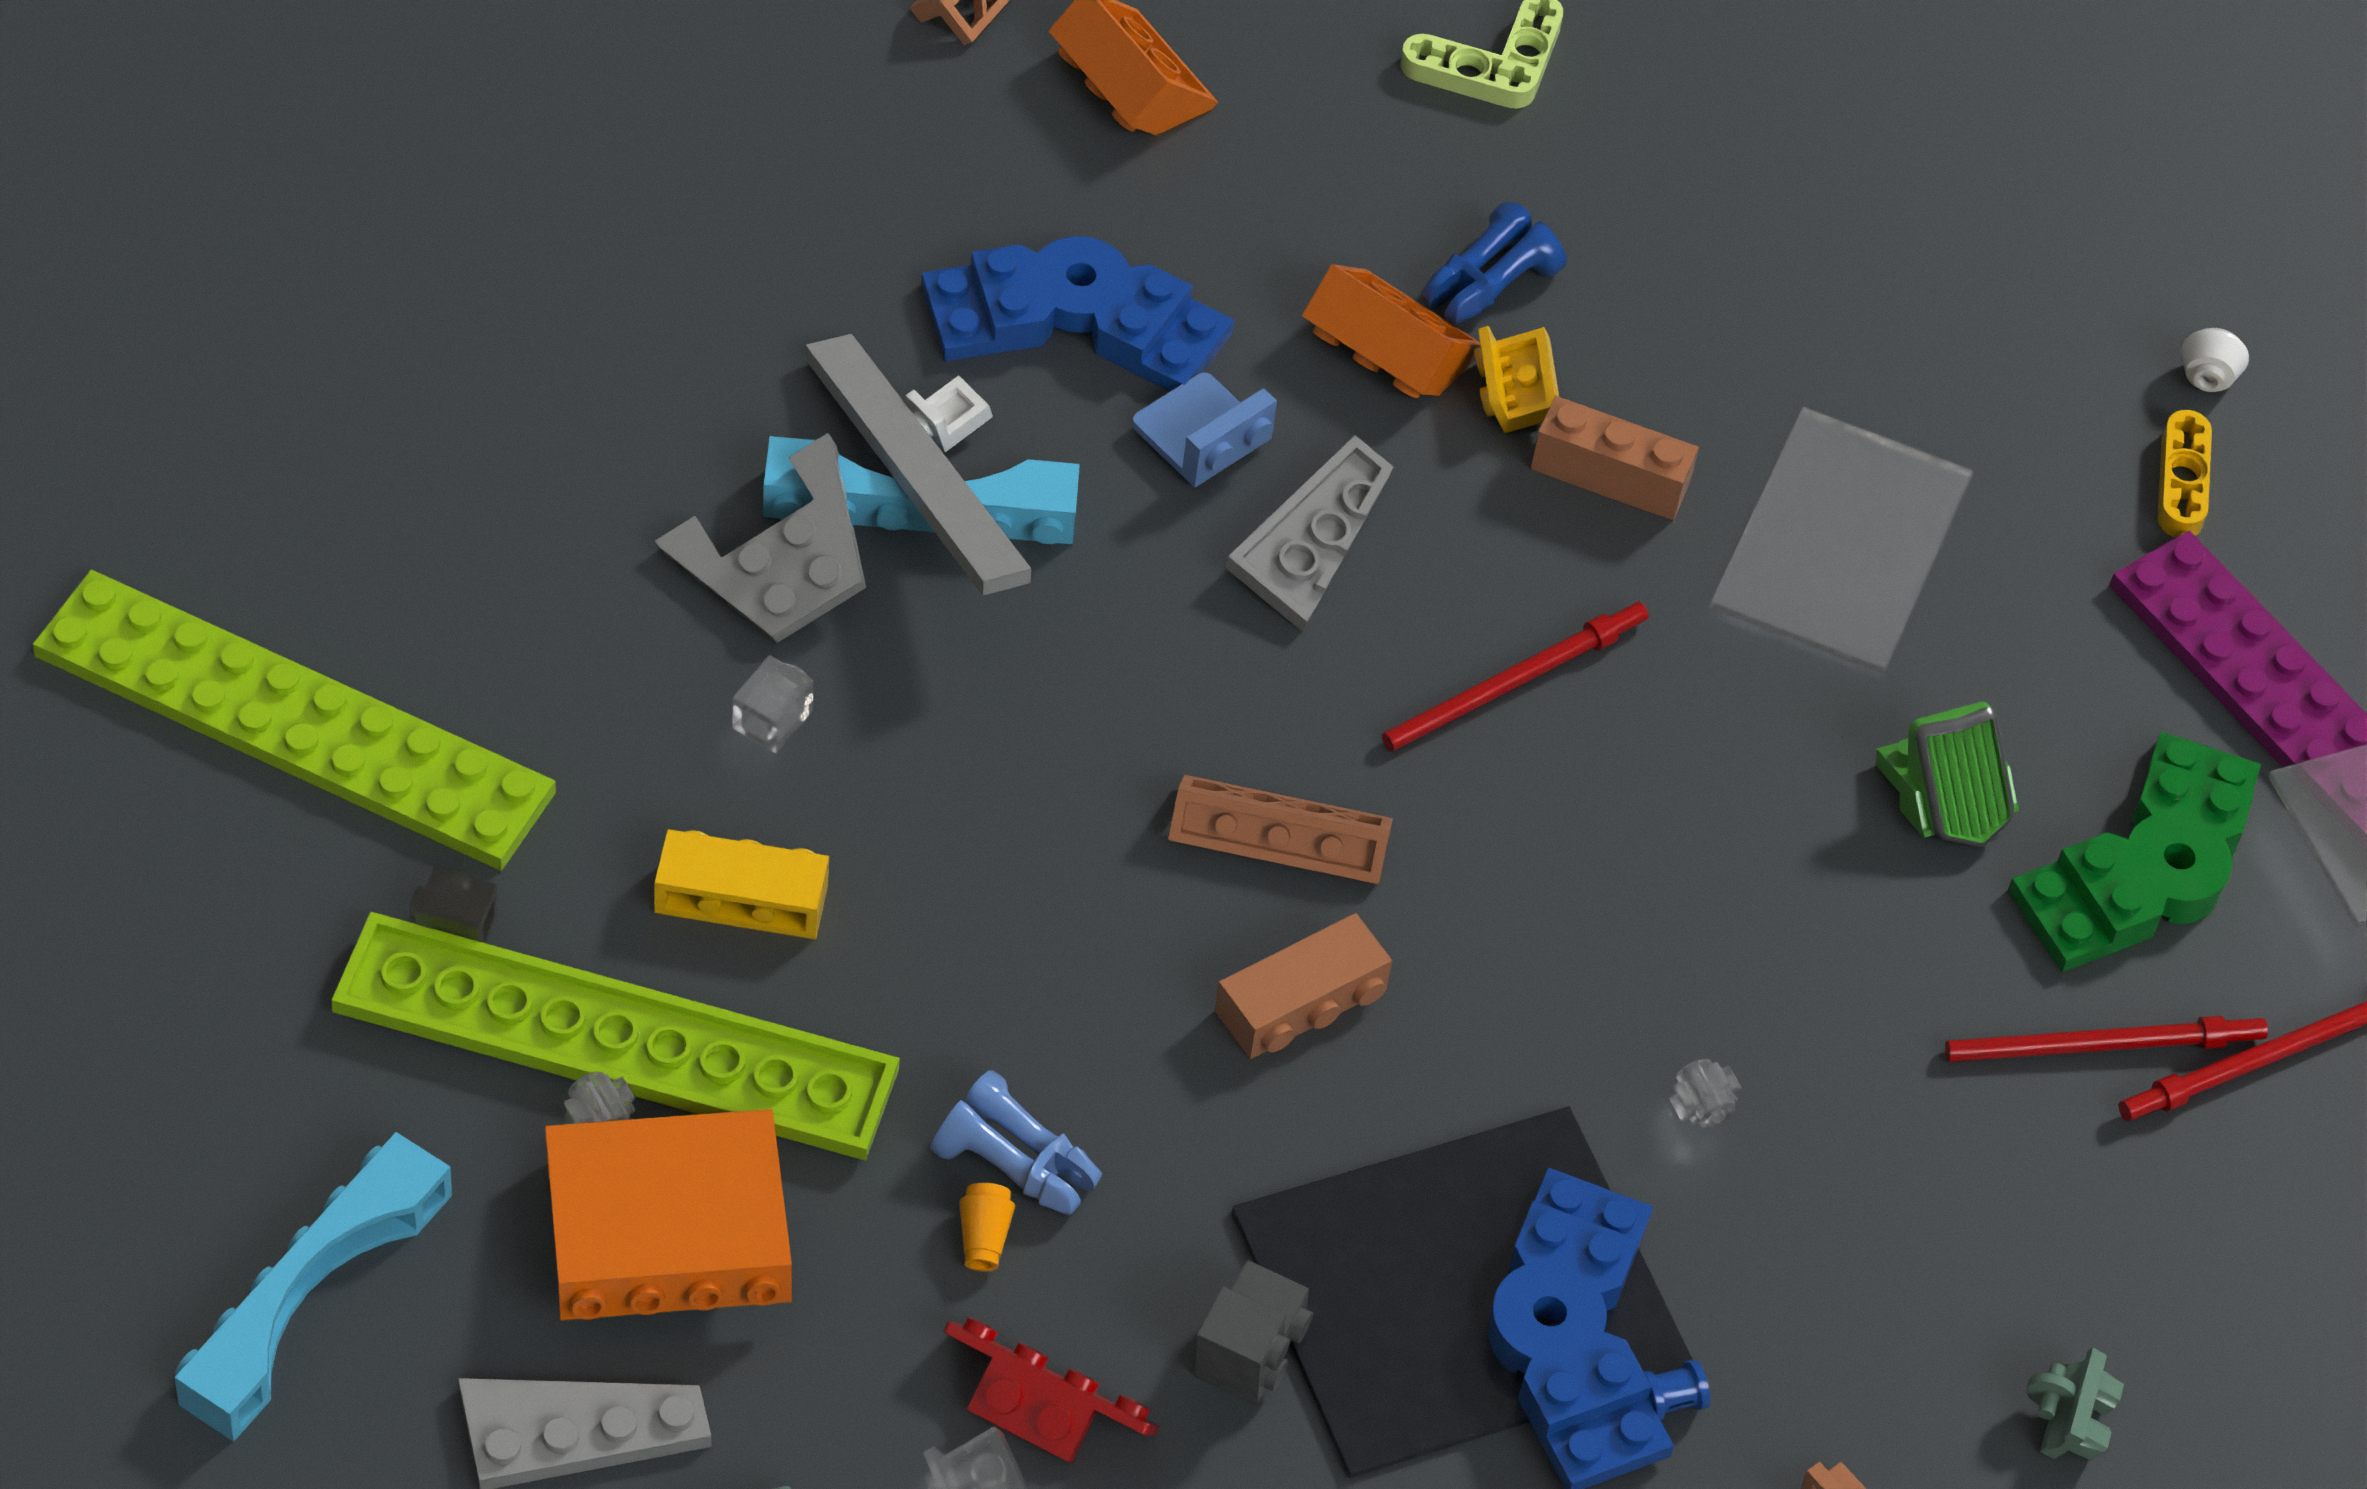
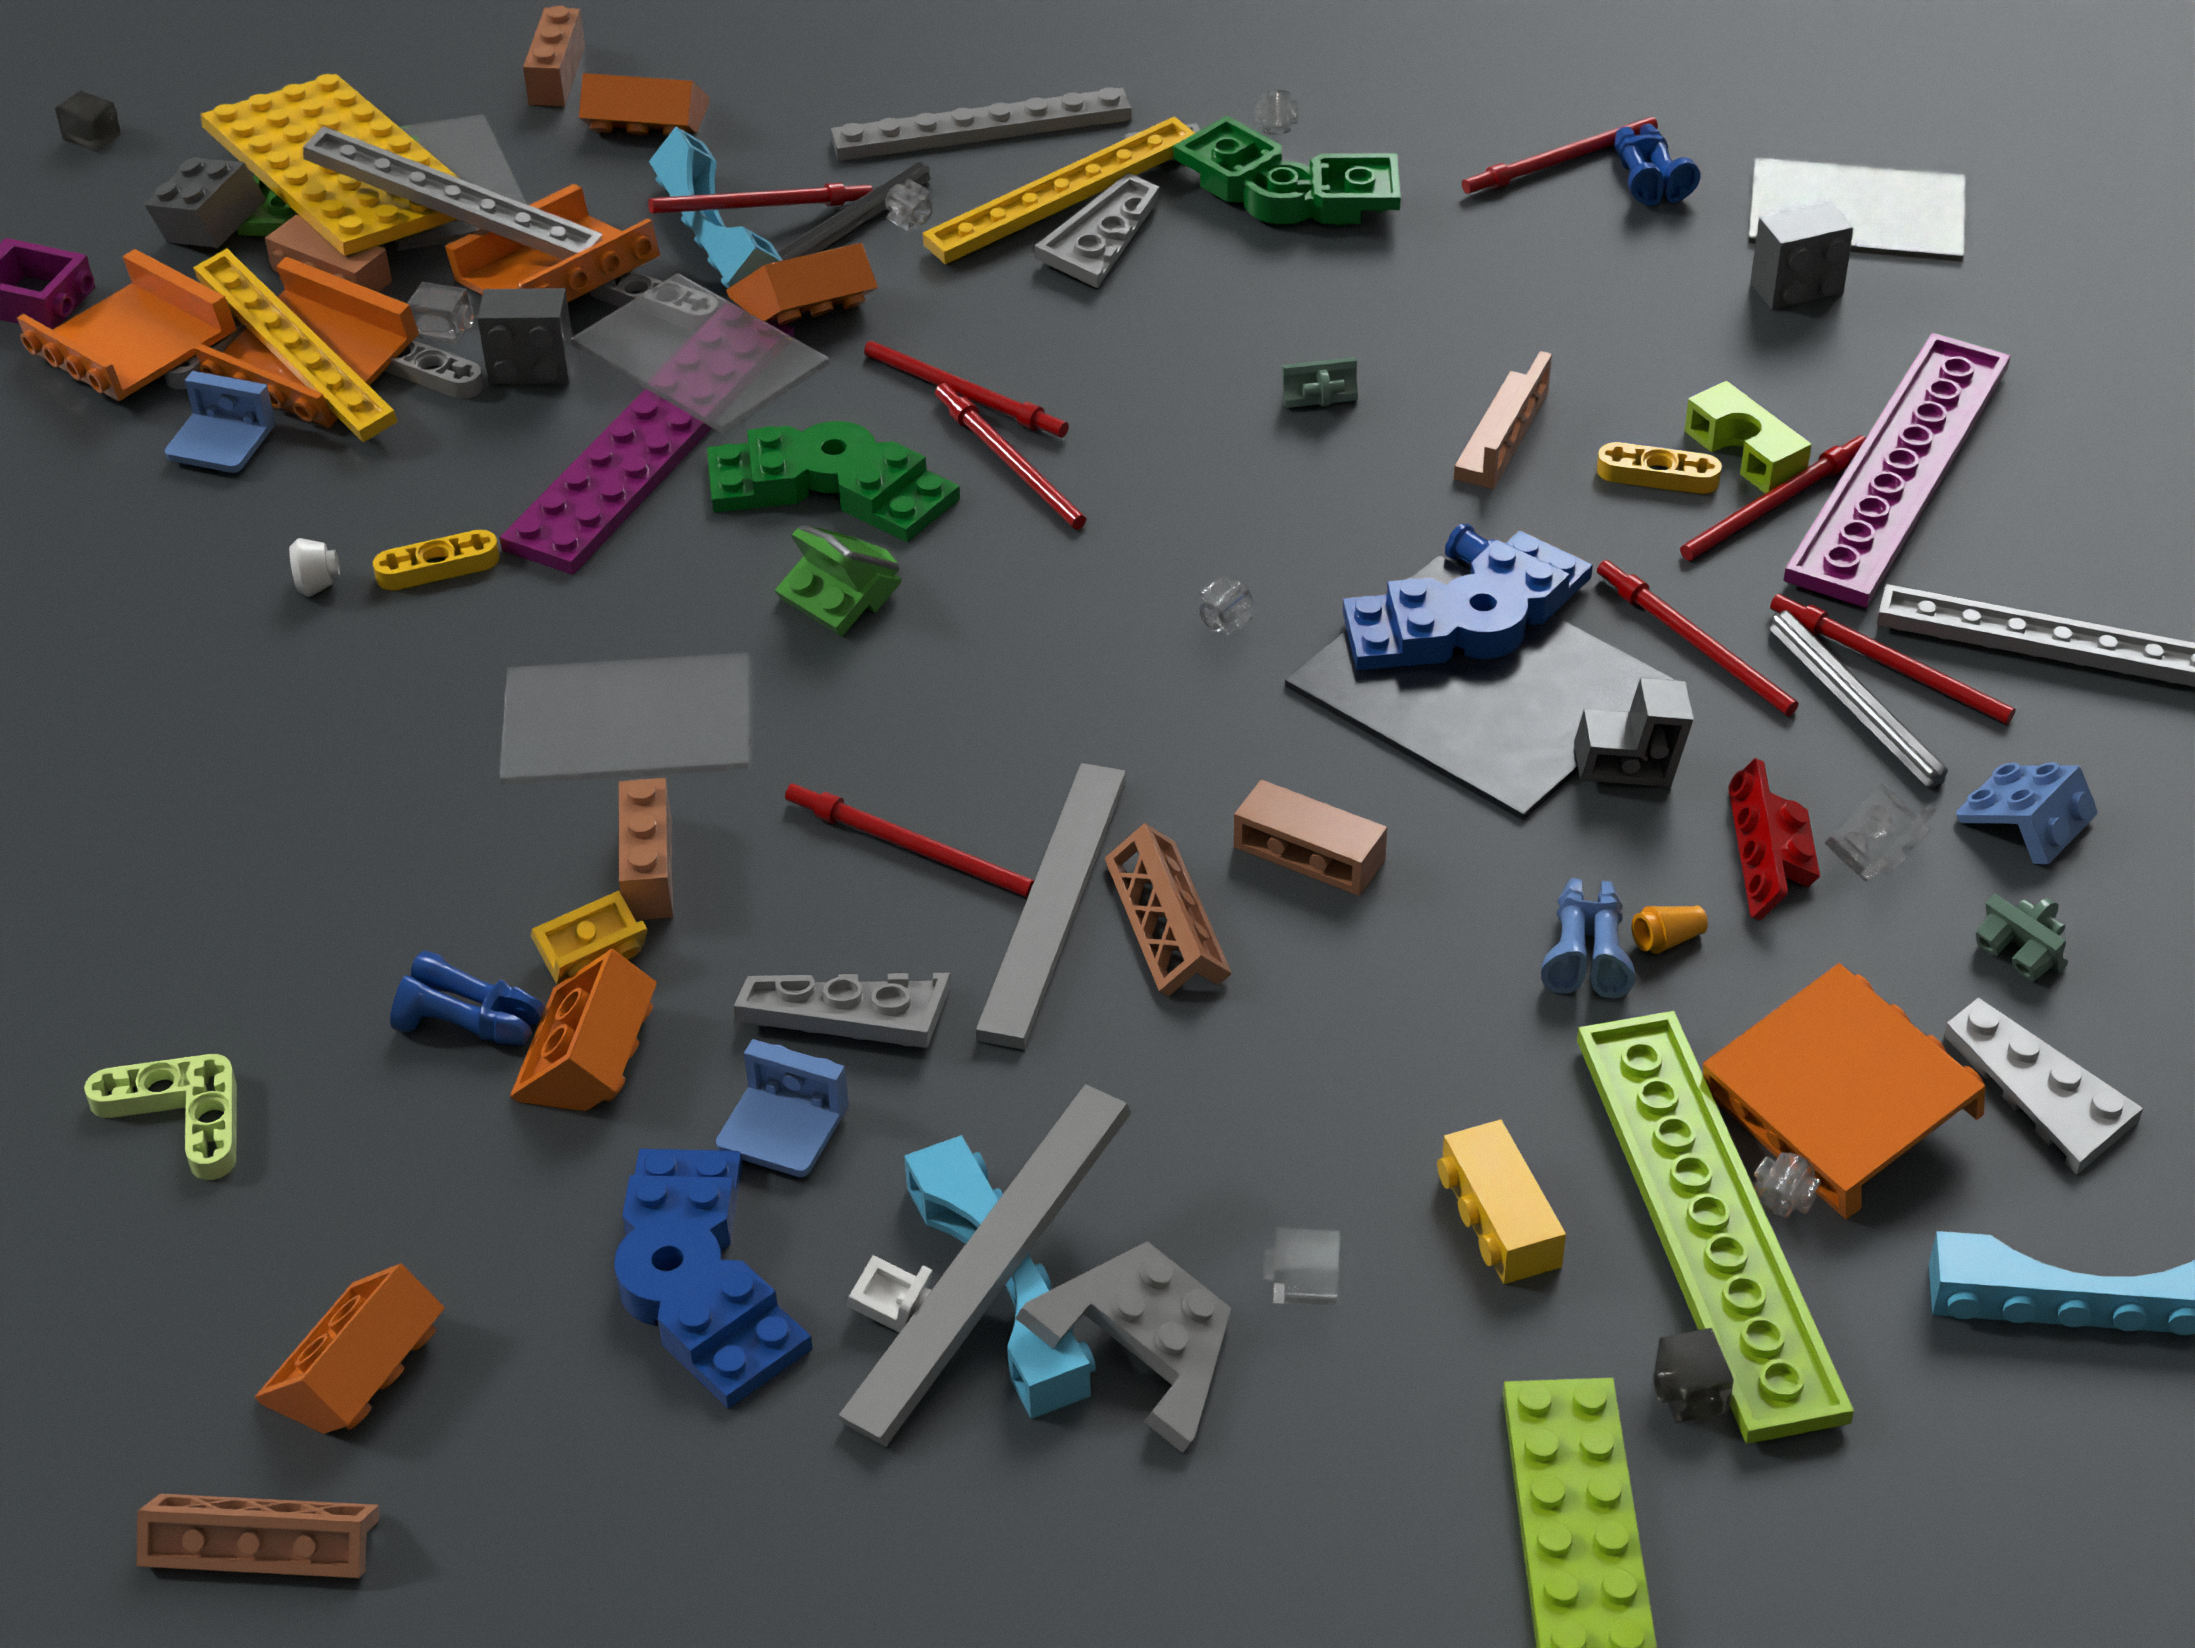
camera: 110 degrees left, 10 degrees down
(1361, 752) = (1051, 907): none -> light grey tile

